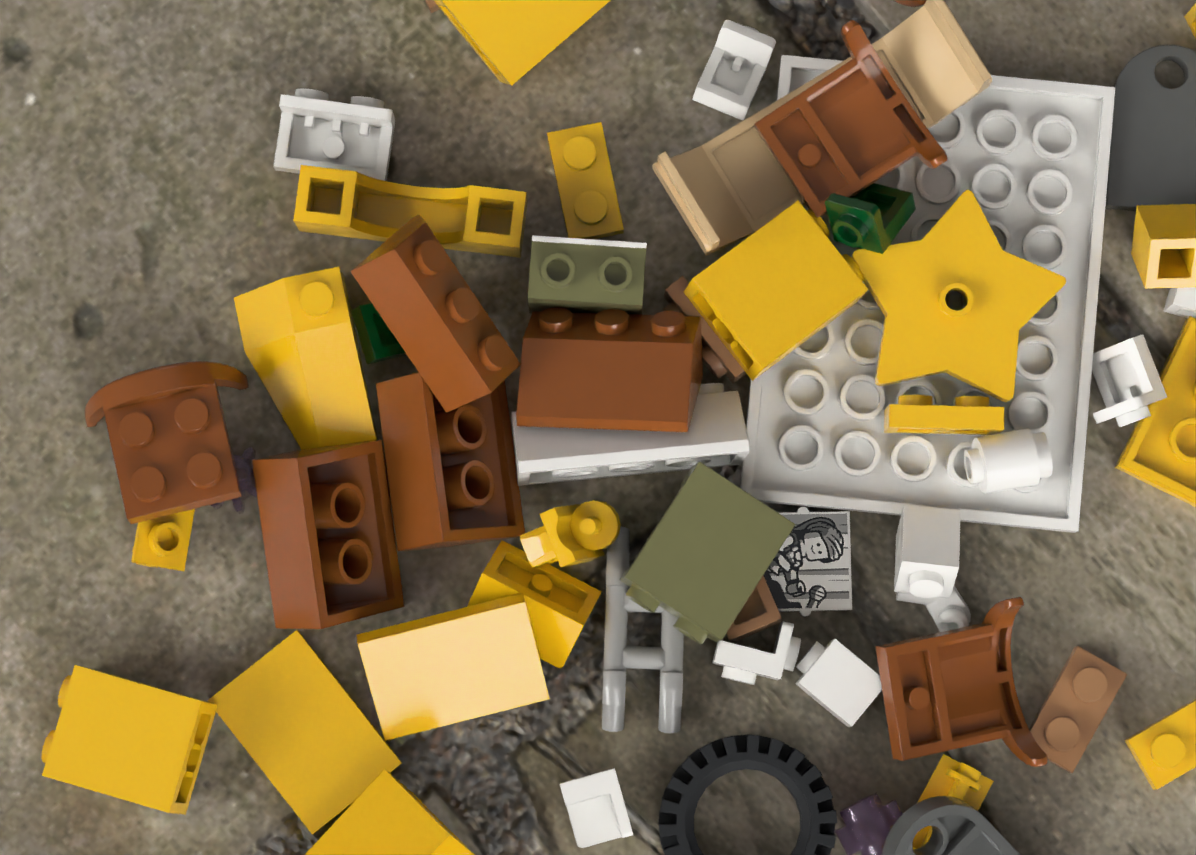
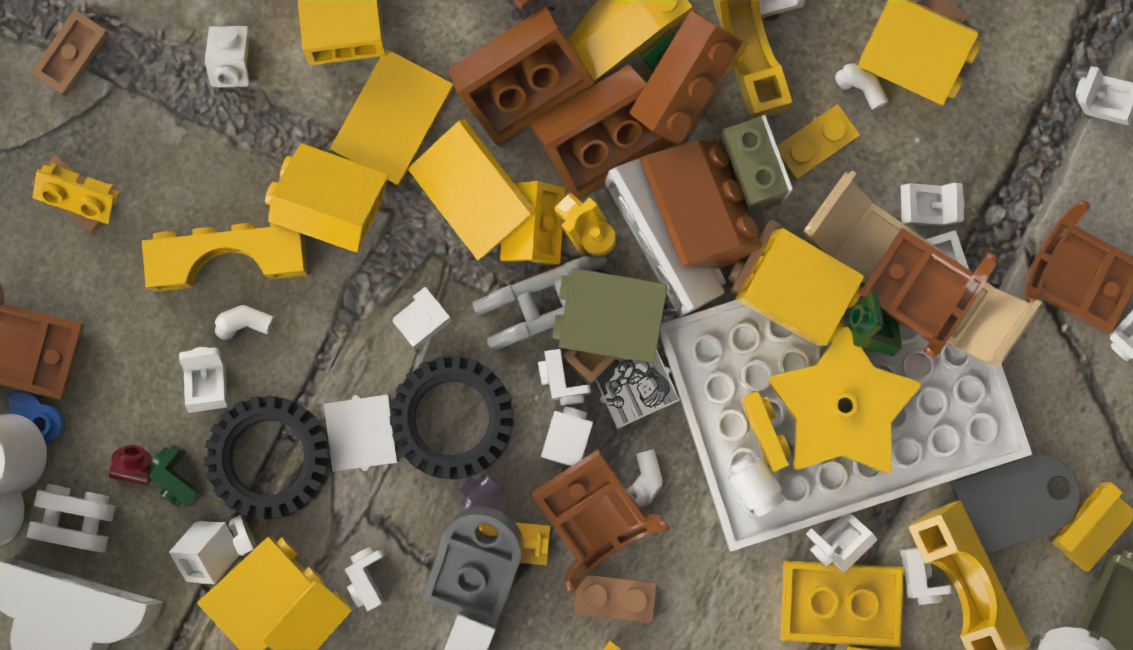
camera: 70 degrees right, 0 degrees up
(540, 79) = (862, 79): none -> white arm
(927, 551) = (674, 458): white brick -> none

